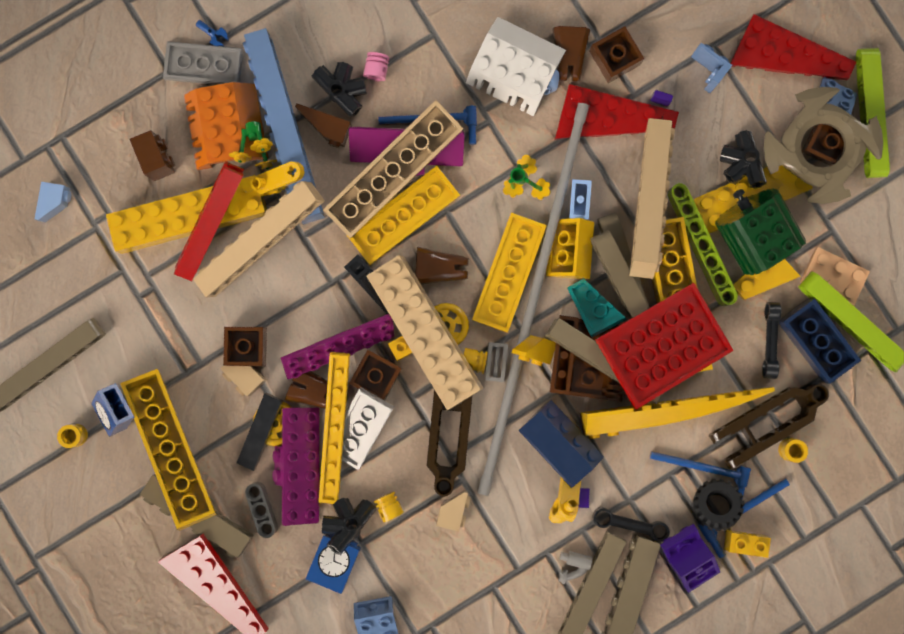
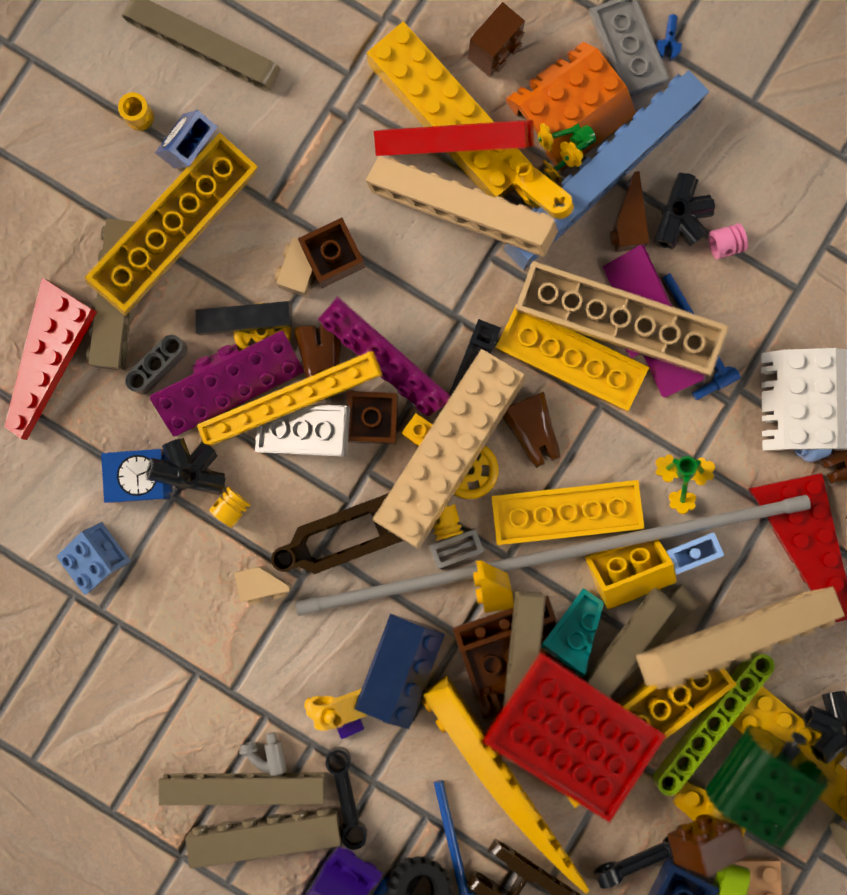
camera: 60 degrees right, 0 degrees up
(780, 291) = (707, 844): none -> reddish brown brick

